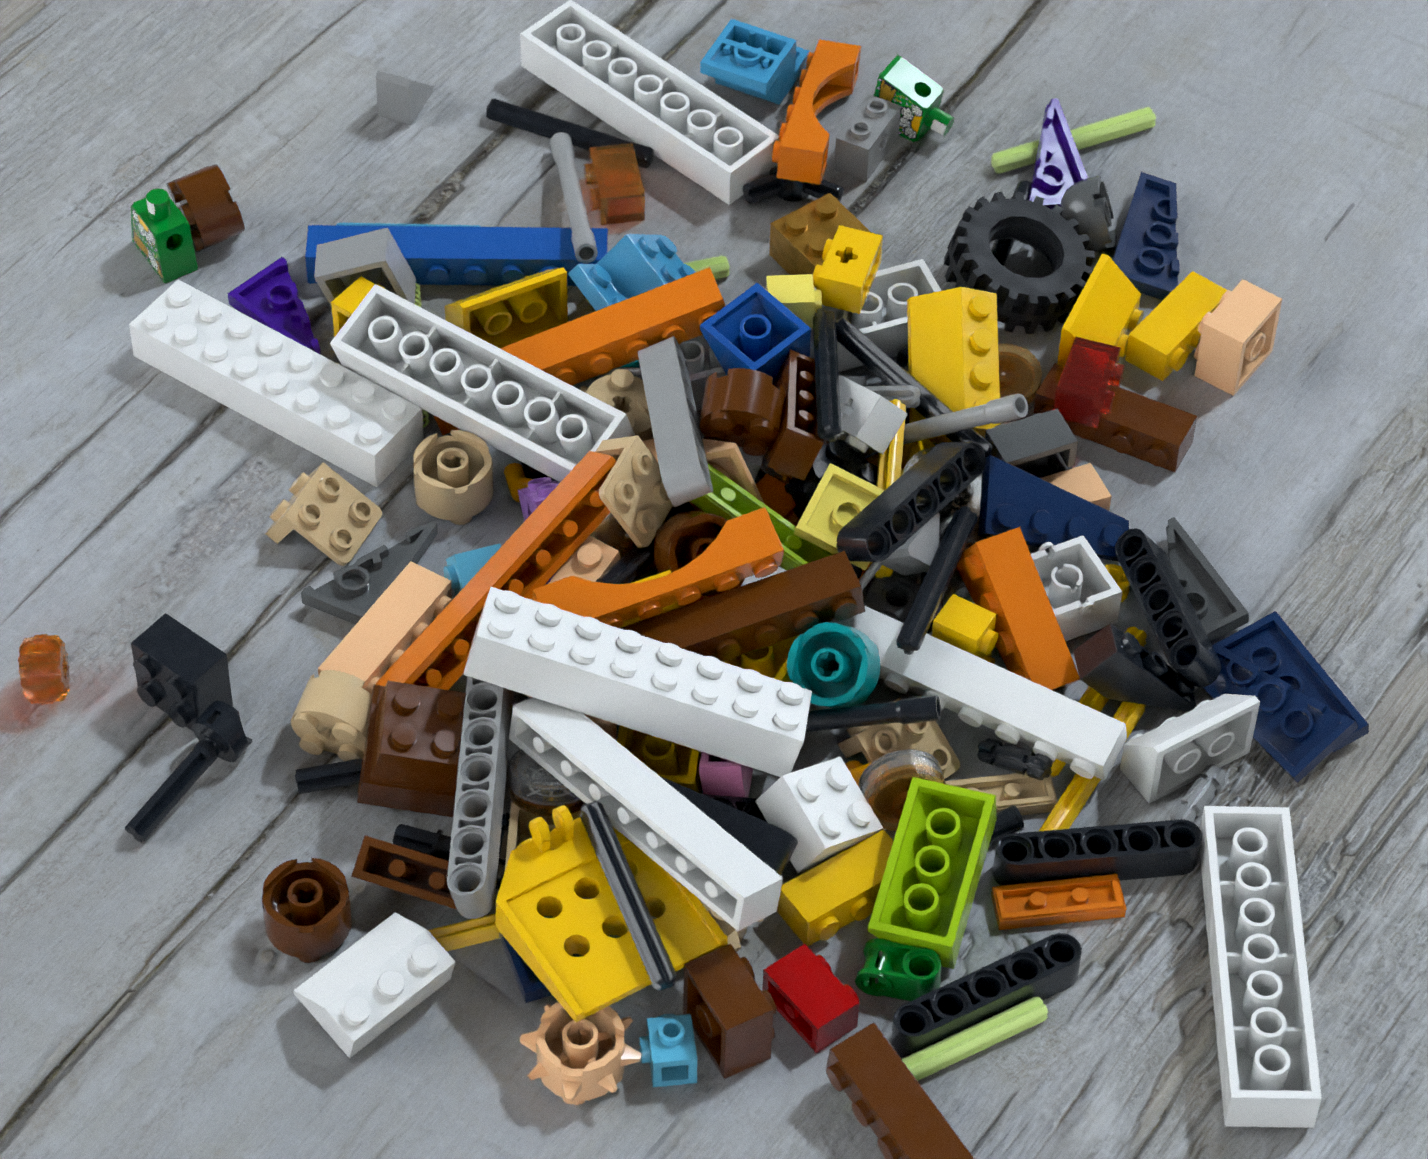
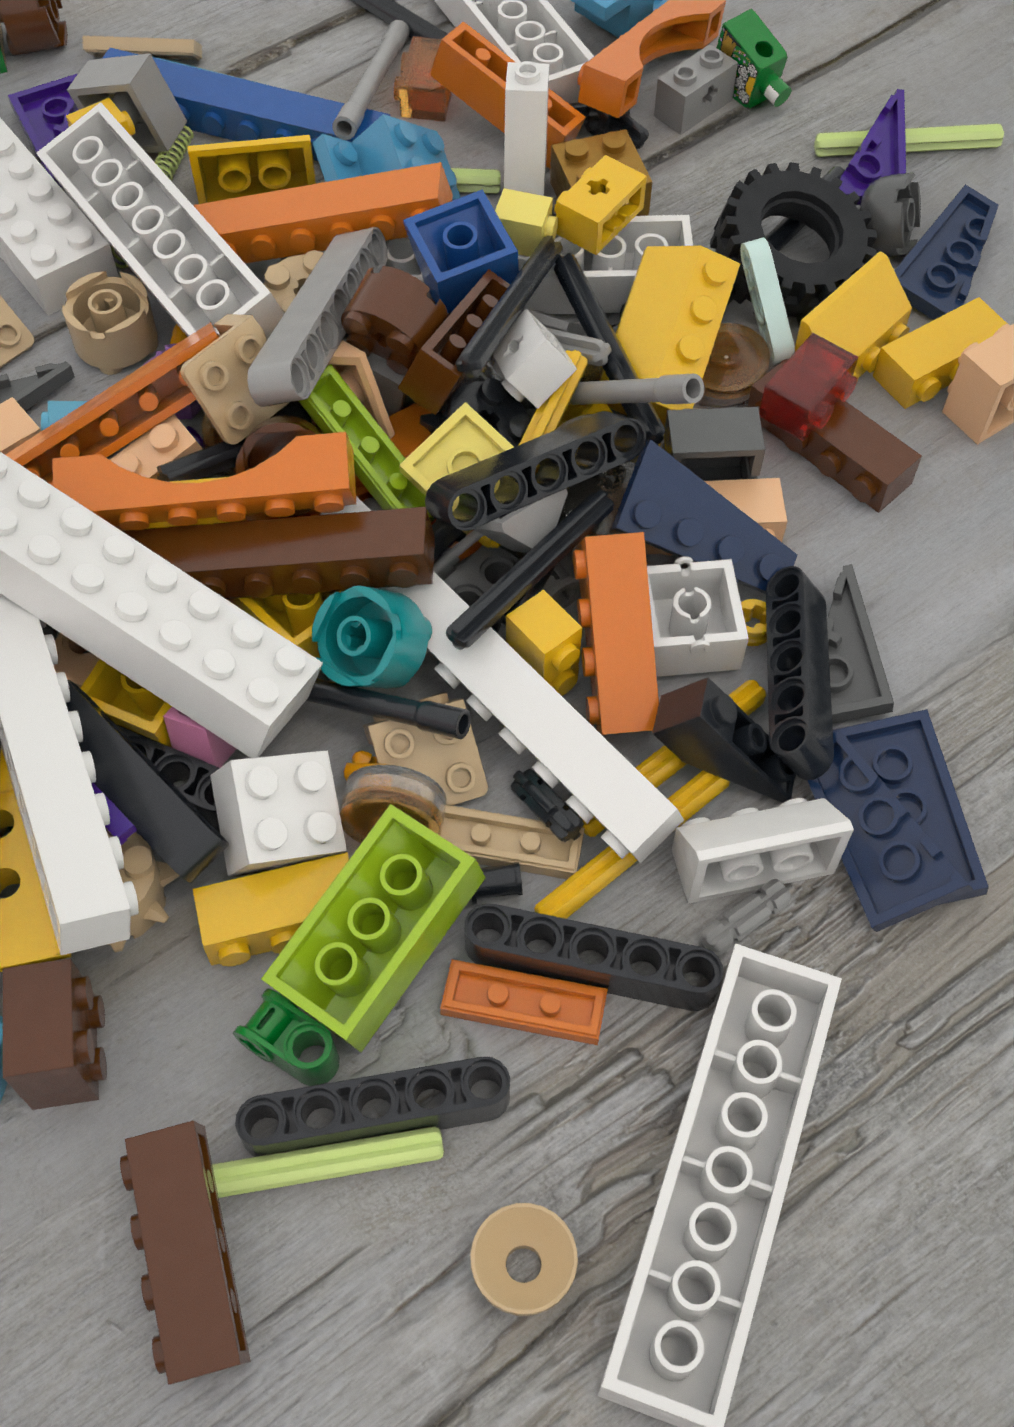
camera: 20 degrees right, 10 degrees up
(328, 216) = (158, 47): none -> tan tile
(709, 186) = (477, 75): none -> orange brick
(756, 224) = (526, 127): none -> white slope
(811, 997) = (170, 1041): red brick -> none
(1024, 317) = (767, 299): none -> light aqua beam
(1142, 1040) = (524, 1228): none -> tan piece

